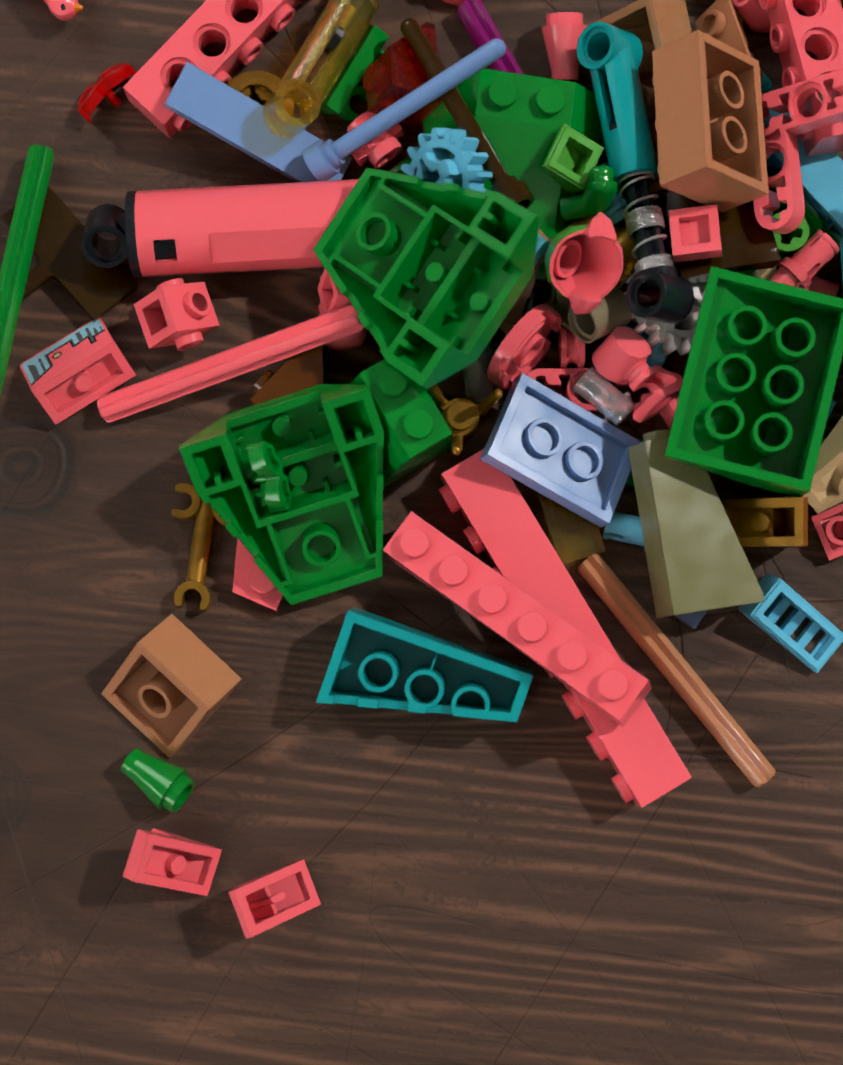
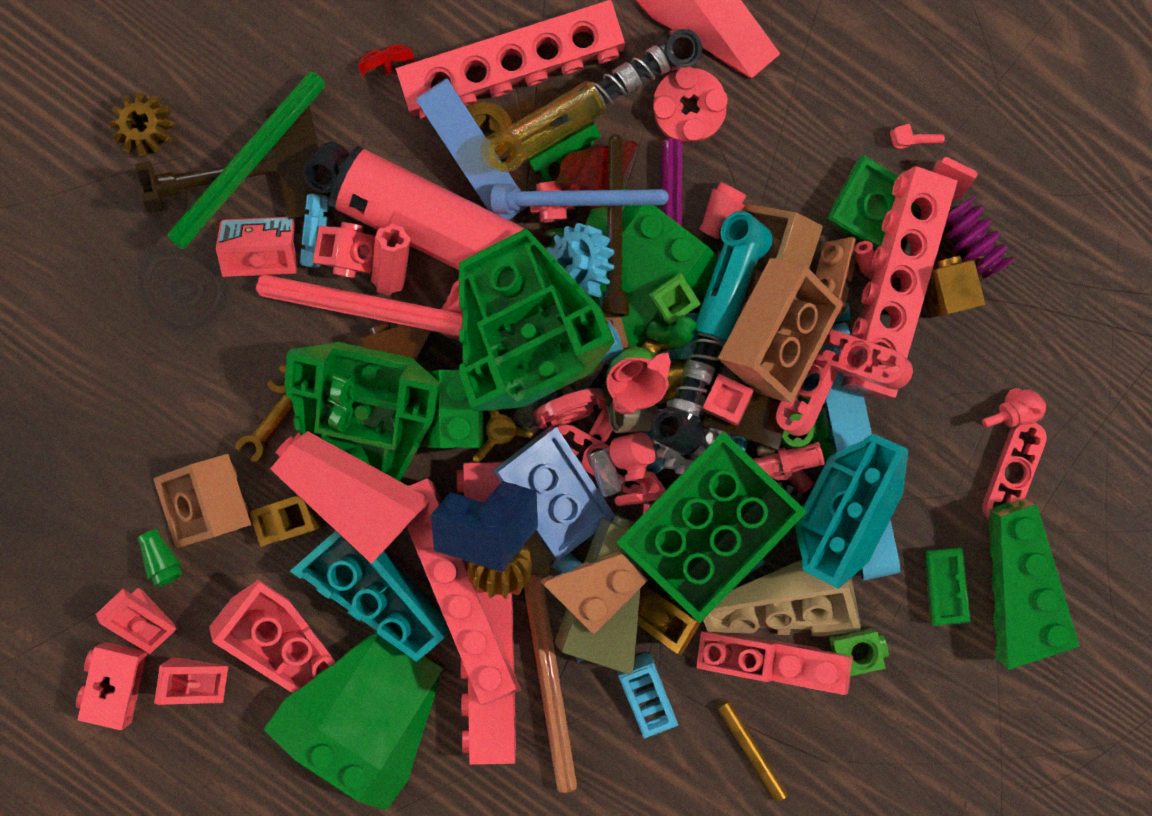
camera: 30 degrees right, 5 degrees up
(118, 285) = (317, 205): none -> medium azure axle
(204, 972) = (125, 670): none -> coral brick
(233, 294) = (390, 259): none -> coral axle
(278, 647) = (284, 520): none -> pearl gold brick
(334, 572) = (348, 493): none -> coral slope
(344, 793) = (270, 637): none -> coral wedge
(489, 827) = (360, 720): none -> green wedge
(513, 521) = (486, 531): none -> dark blue brick
(550, 558) = (511, 580): none -> pearl gold gear
(672, 521) = (596, 589): none -> nougat wing

